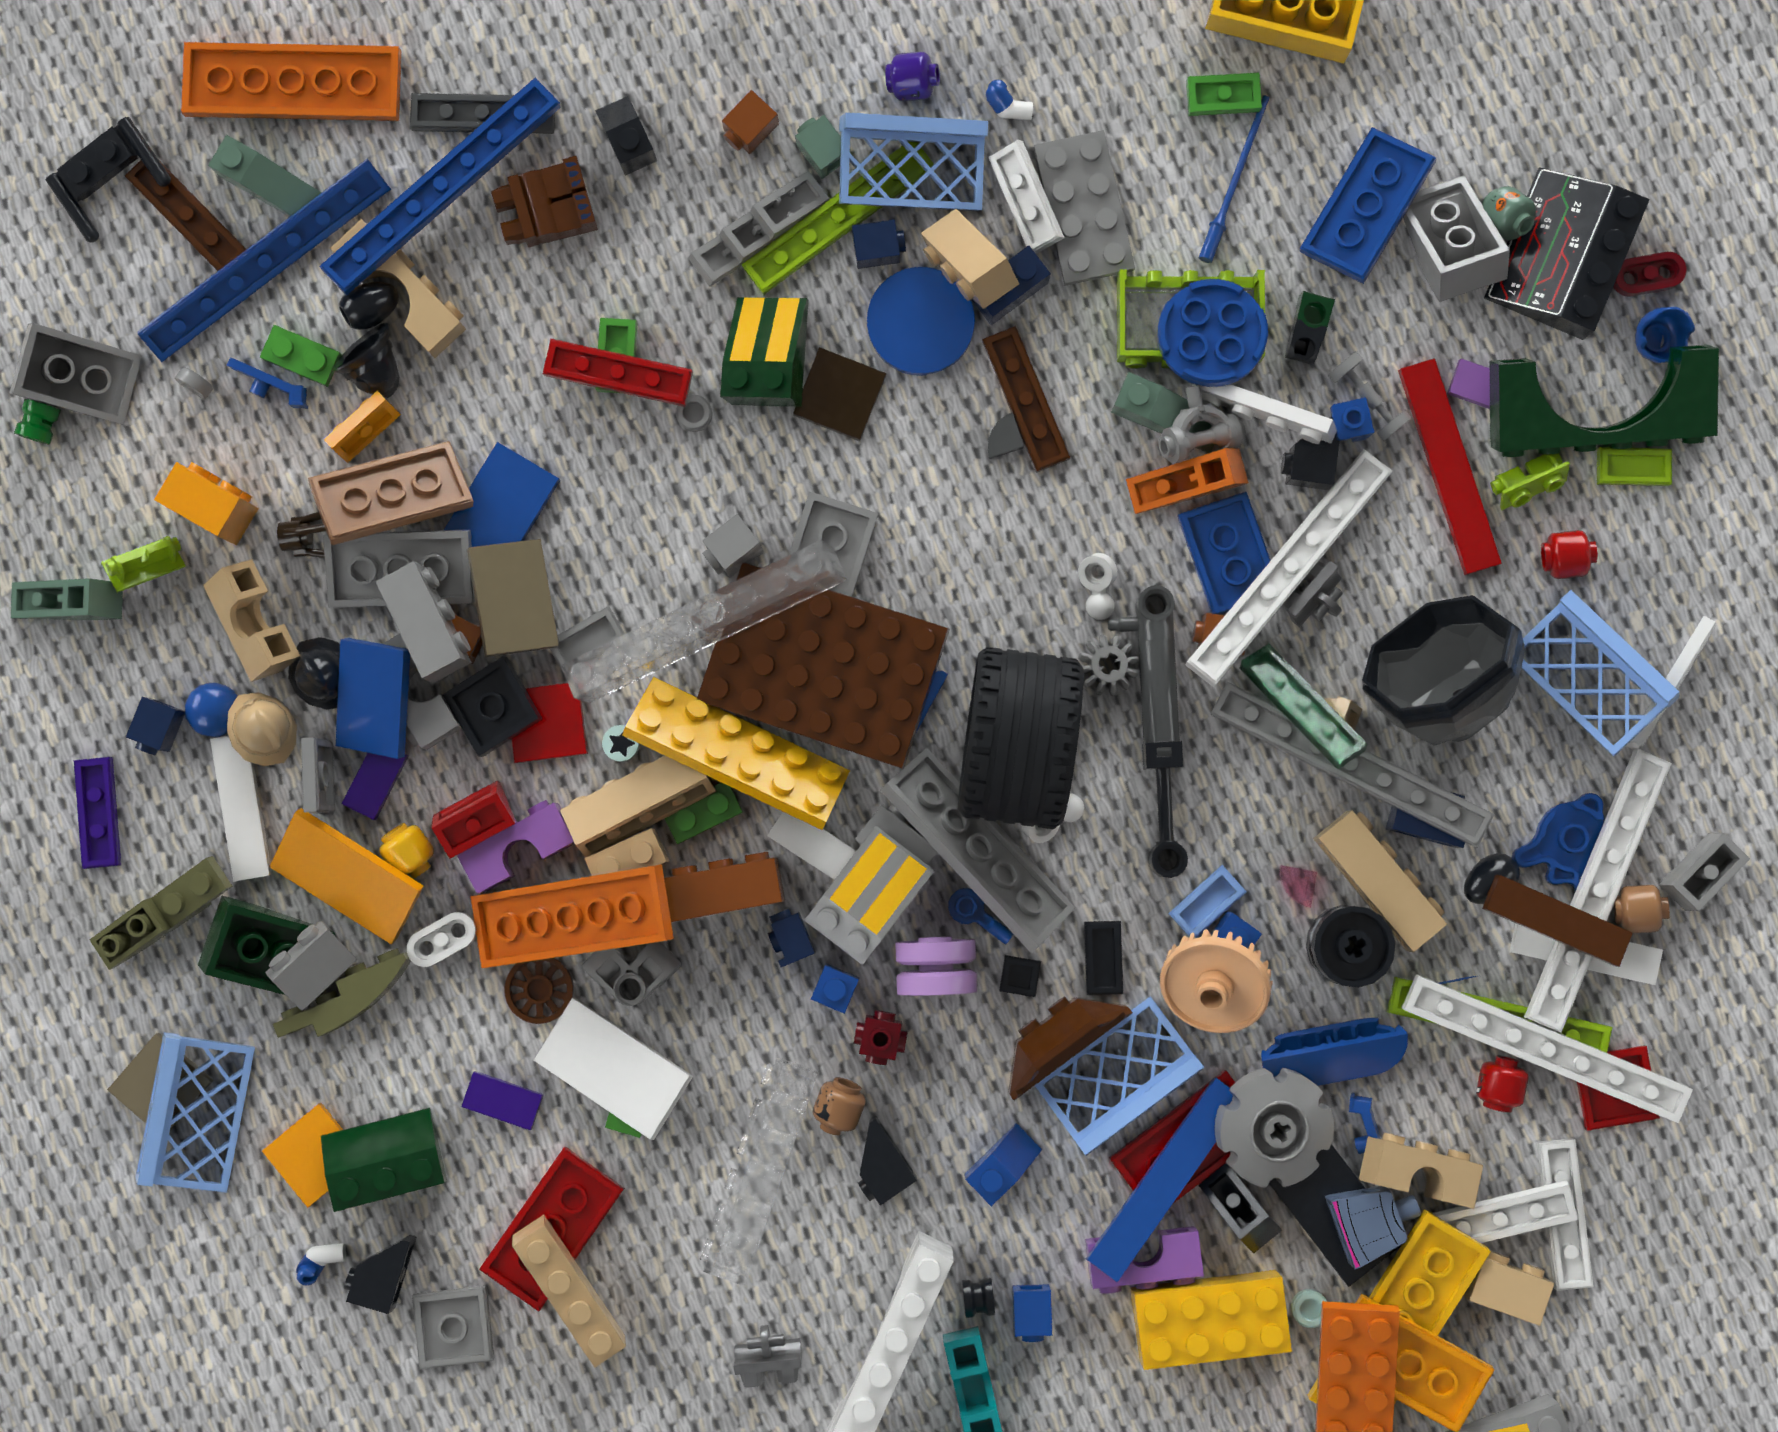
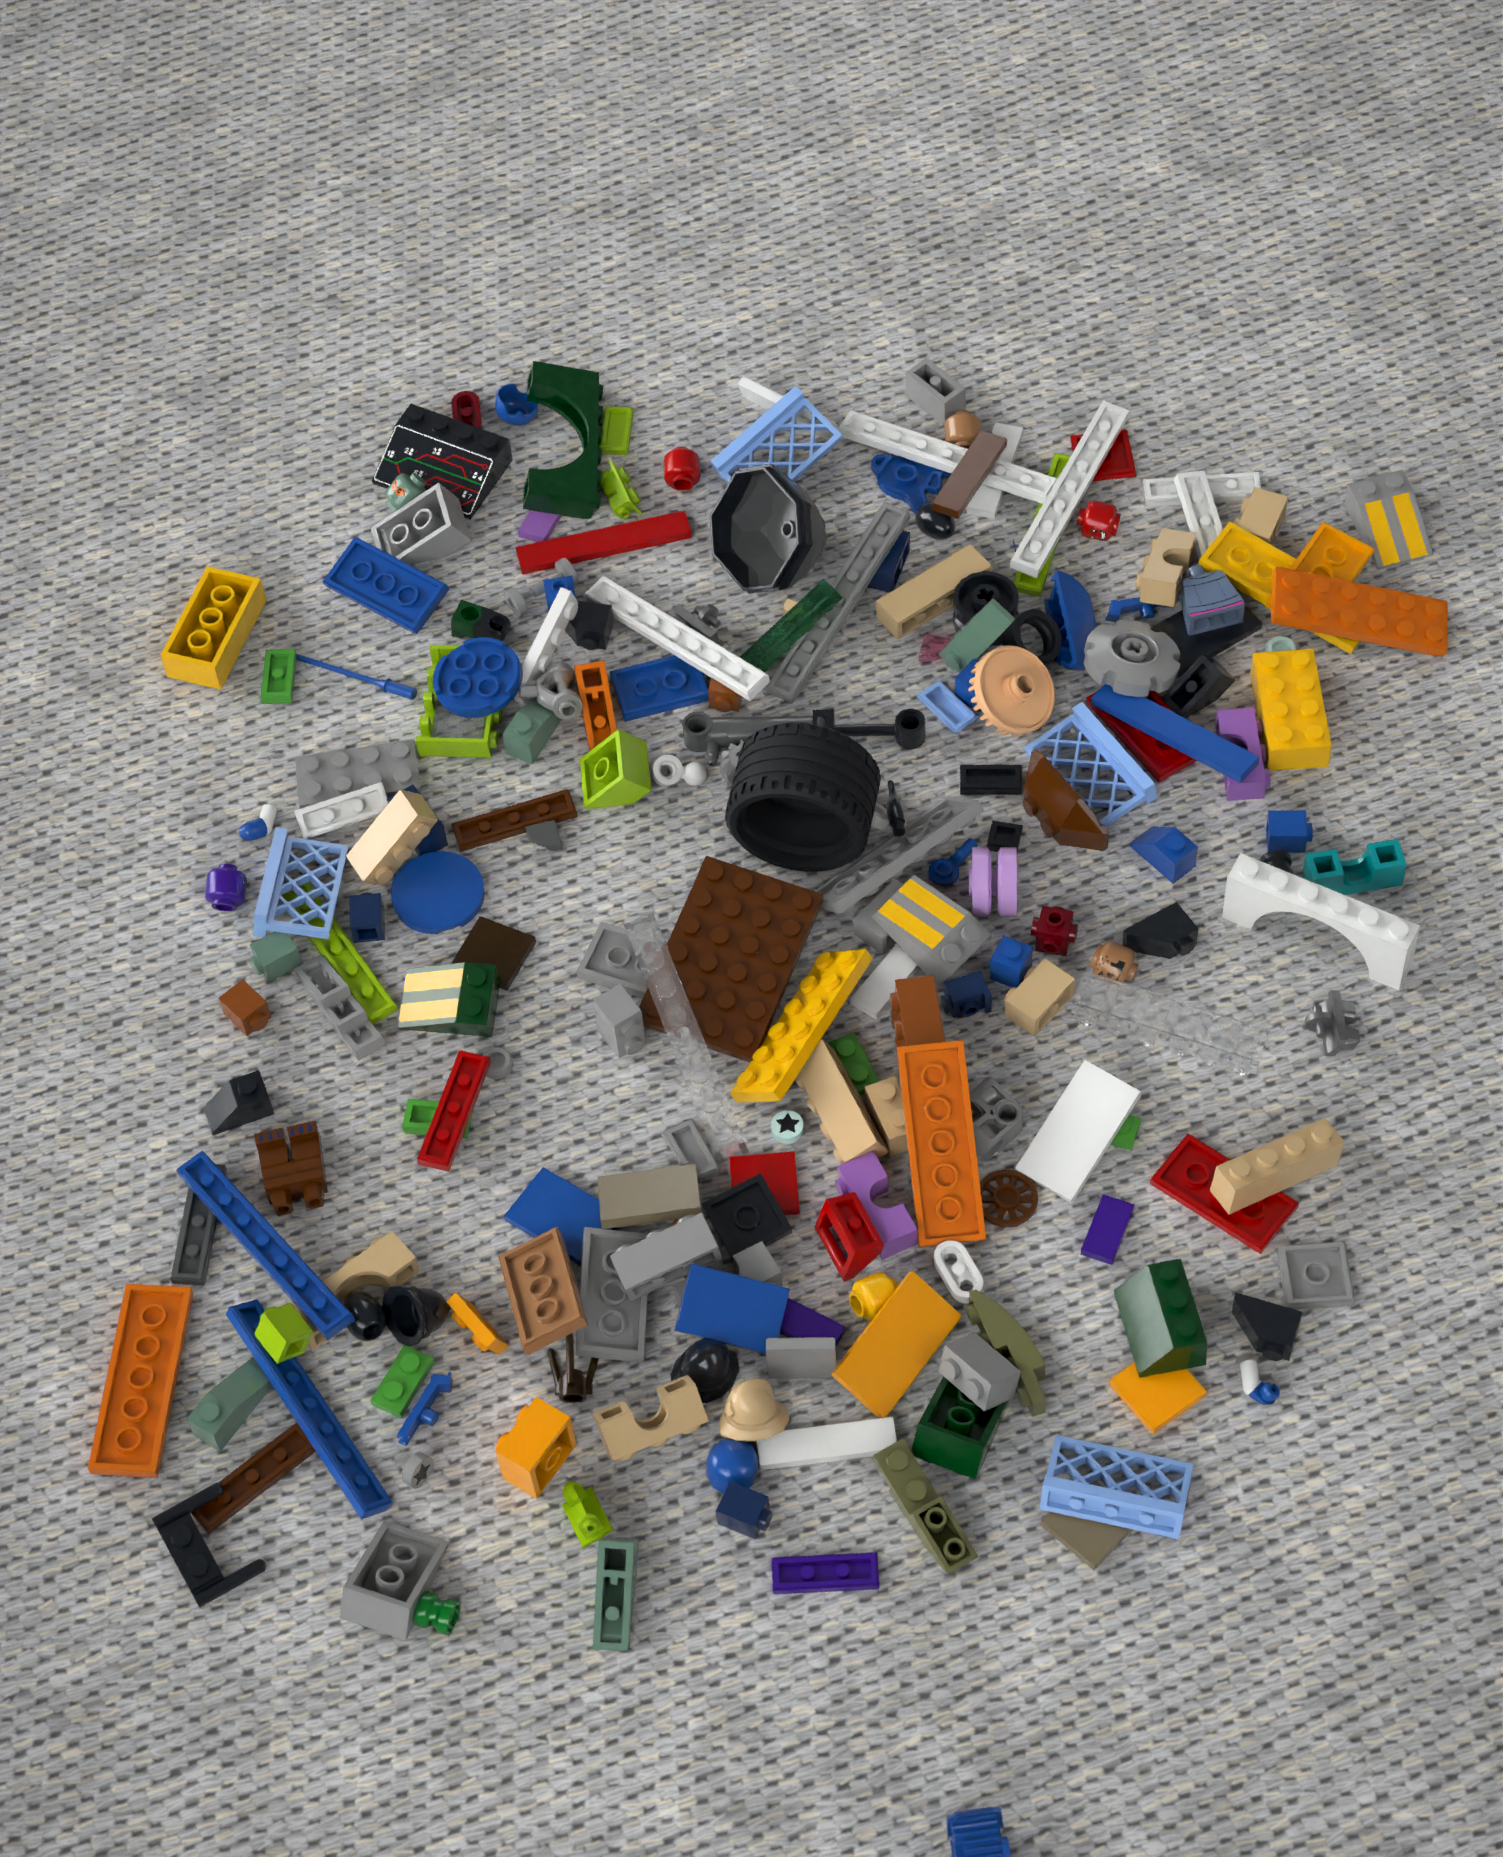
camera: 85 degrees left, 30 degrees down
(330, 220) = (283, 1332): none -> lime brick
(792, 1020) = (1039, 996): none -> tan brick
(1043, 845) = (895, 812): none -> black animal
(1091, 512) = (615, 772): none -> lime slope
(1290, 933) = (976, 636): none -> sand green slope
(1302, 1027) = (1044, 625): none -> black tyre

